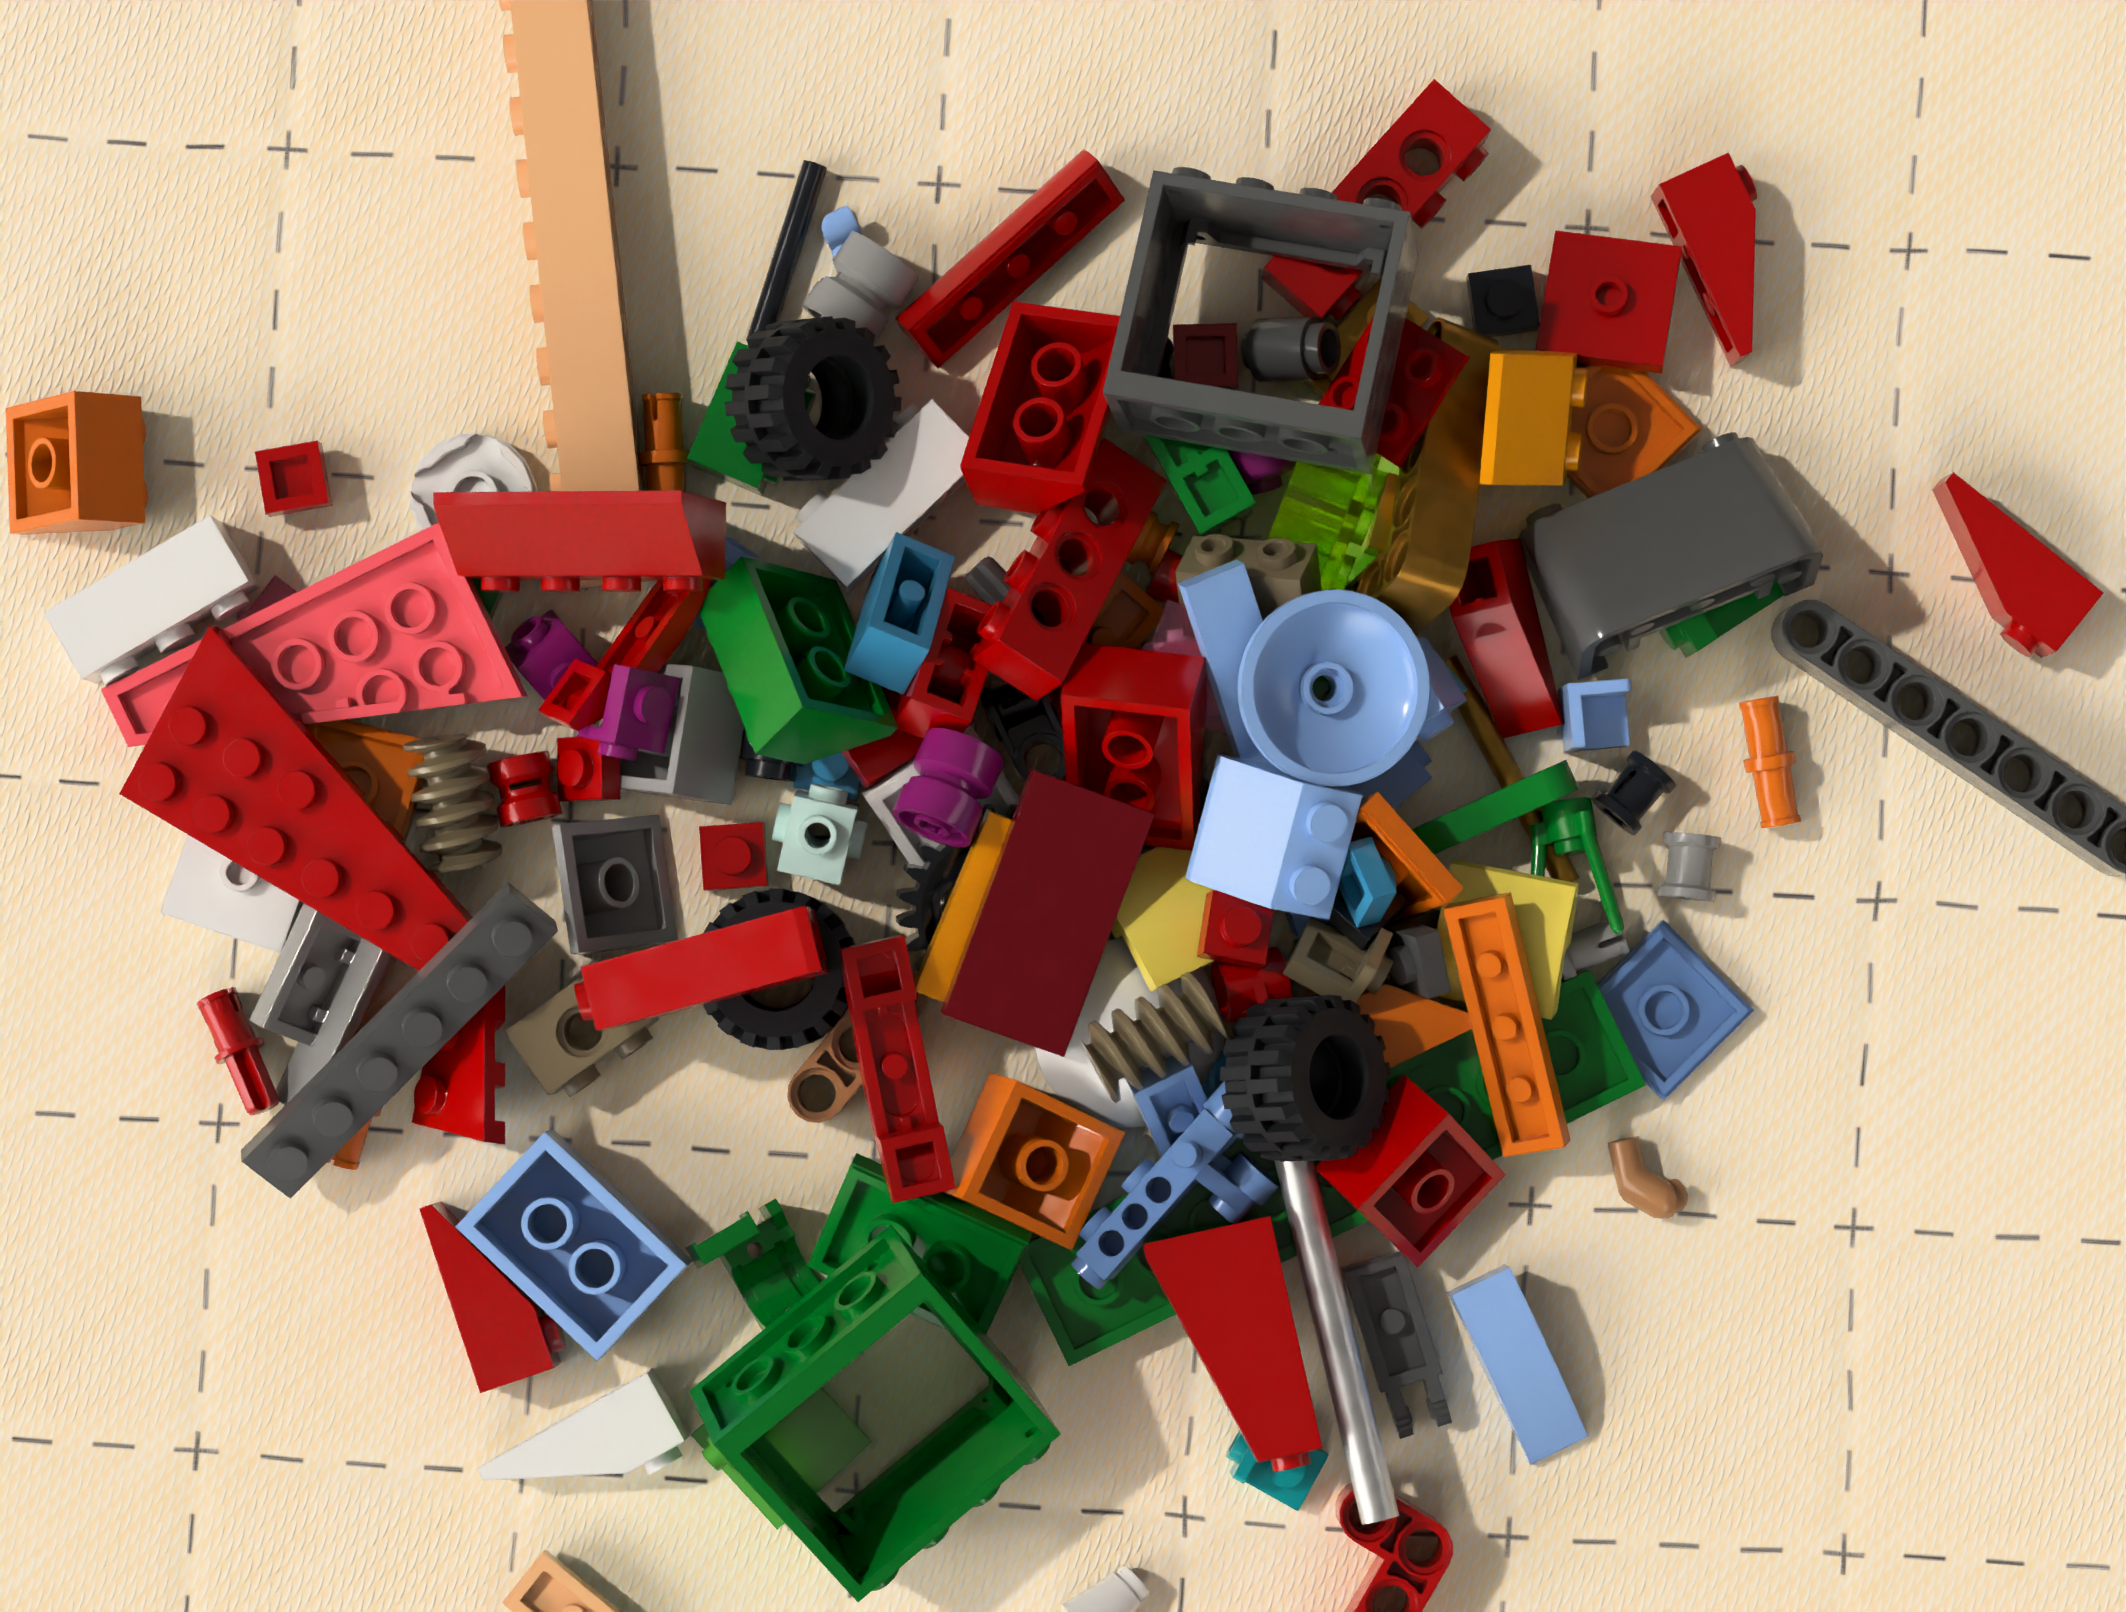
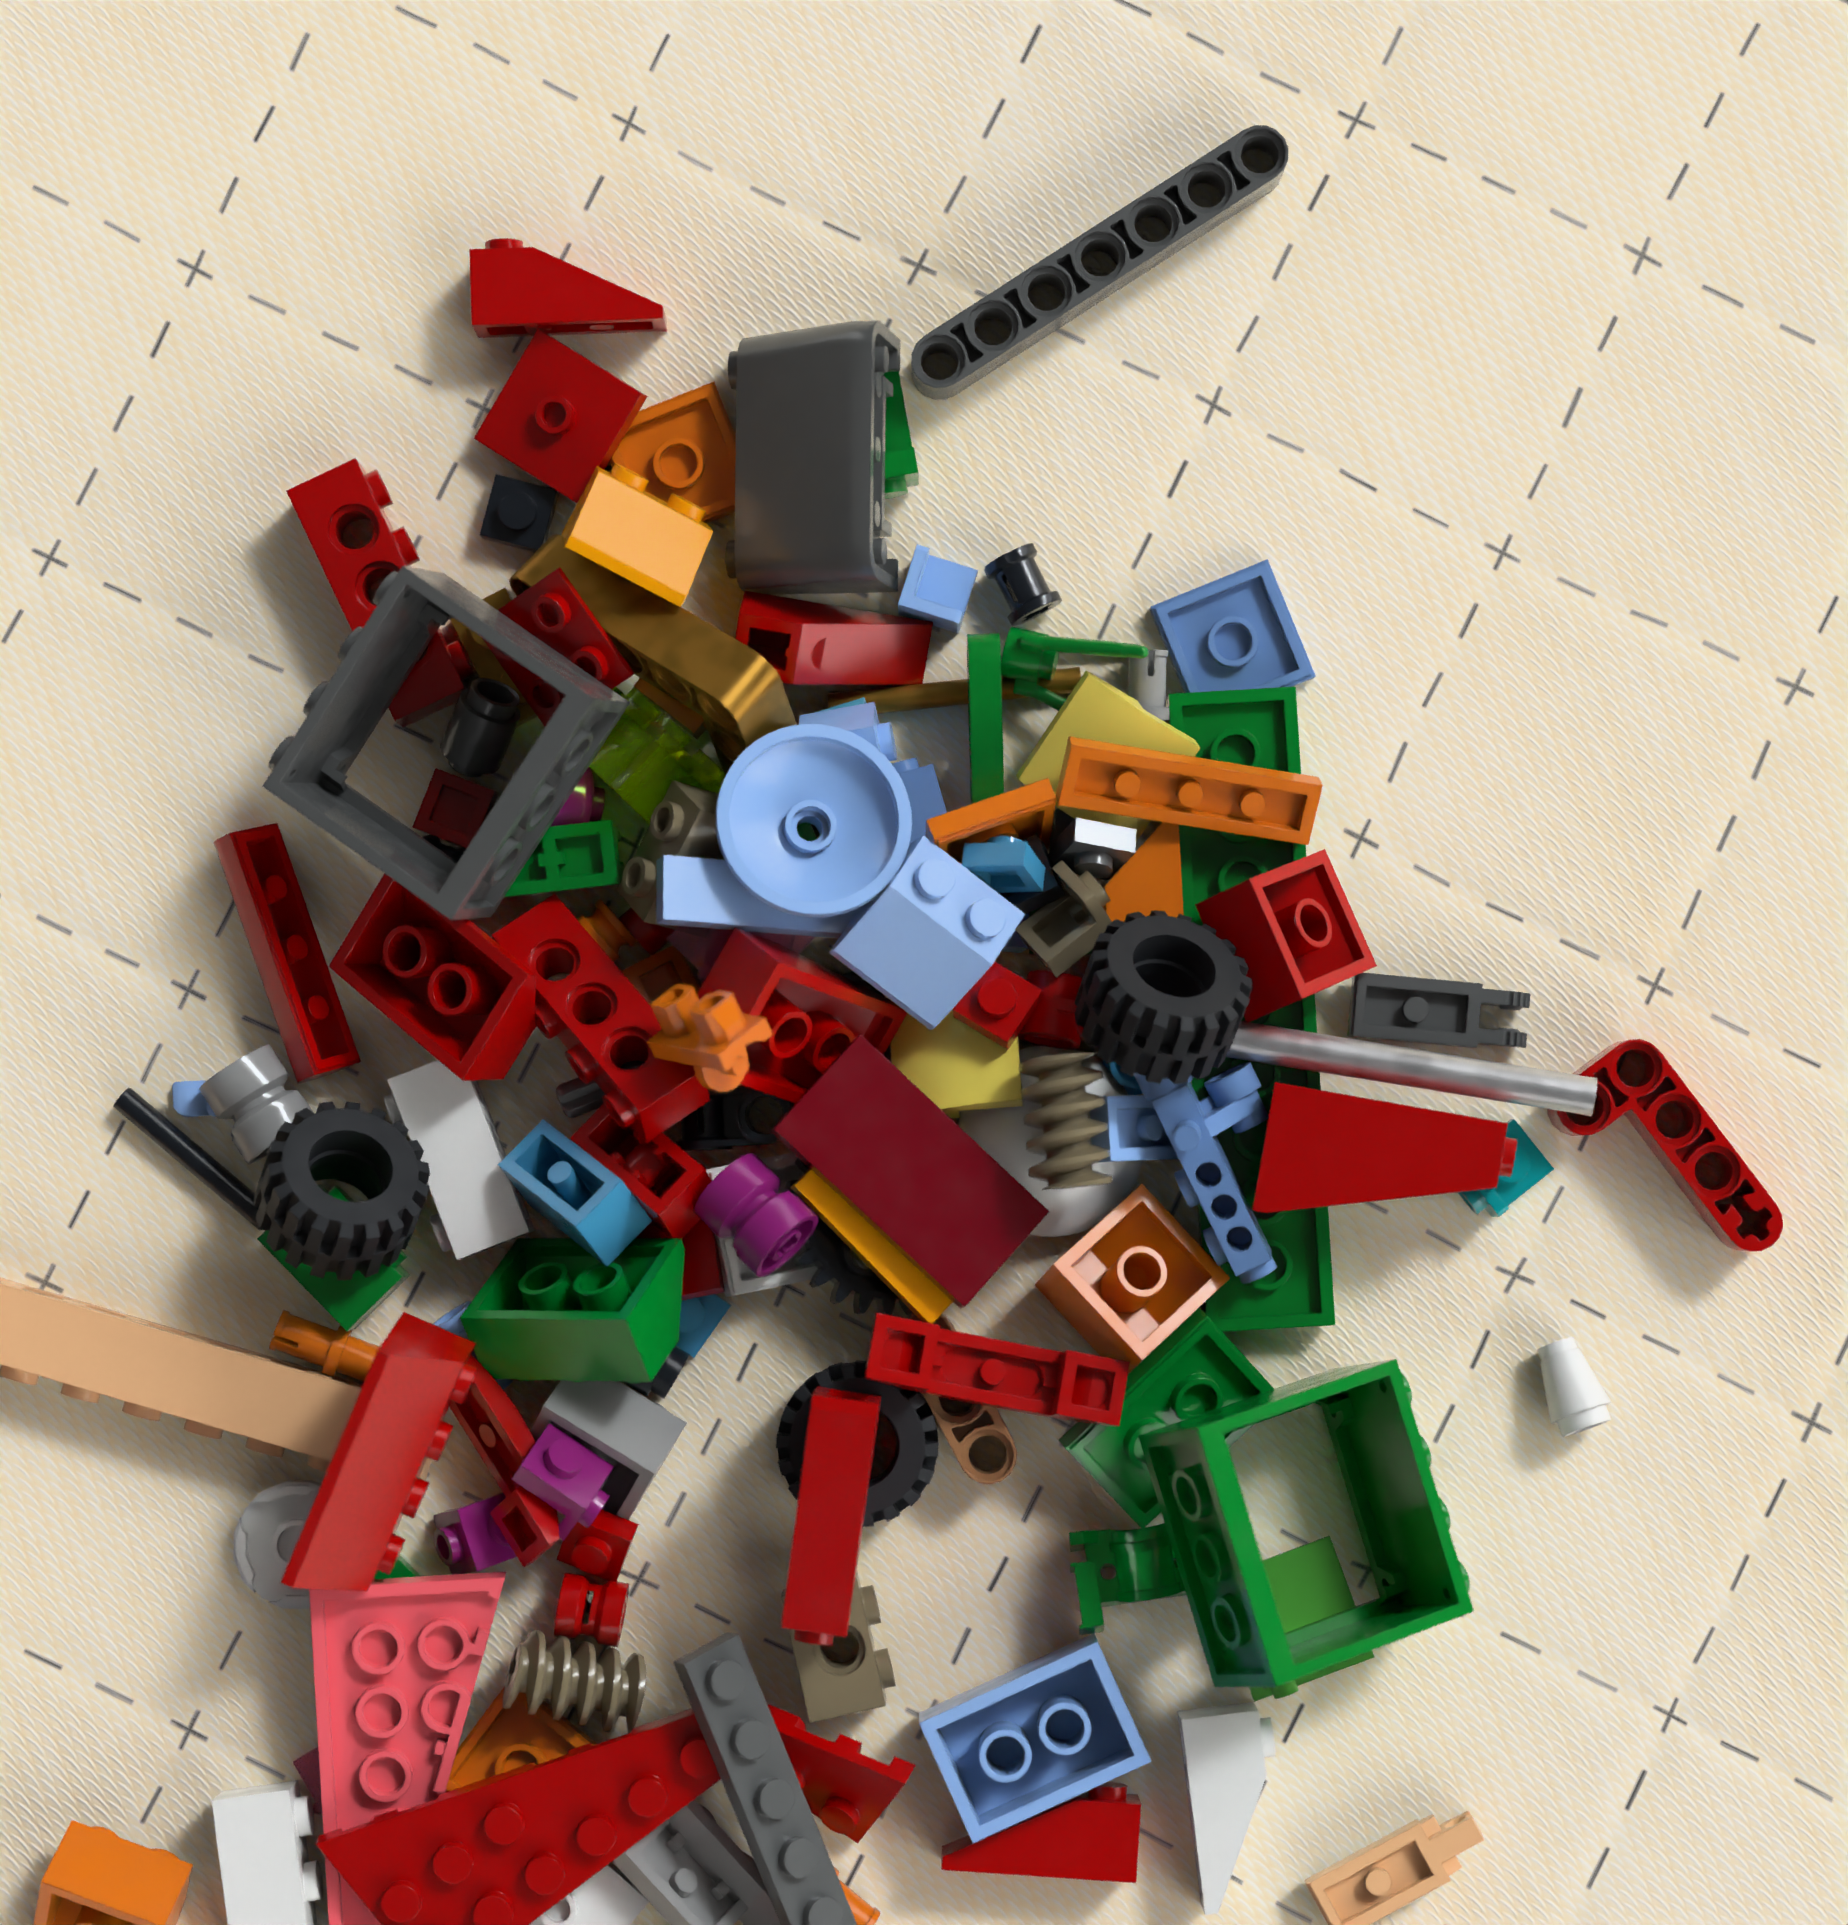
camera: 65 degrees left, 0 degrees up
(293, 478) = (209, 1707): red plate -> none
(614, 884) = (714, 1562): light grey slope -> none
(733, 856) = (735, 1440): red plate -> none
(815, 857) = (764, 1369): light aqua brick -> none
(1094, 671) = (706, 1034): none -> orange hips
(1518, 1363) = (1501, 910): light blue slope -> none
(1641, 1187) = (1387, 729): medium nougat arm -> none
(1689, 866) = (1111, 562): light grey bush -> none
(1769, 762) = (1046, 448): orange pin -> none
(2018, 577) = (972, 151): red slope -> none

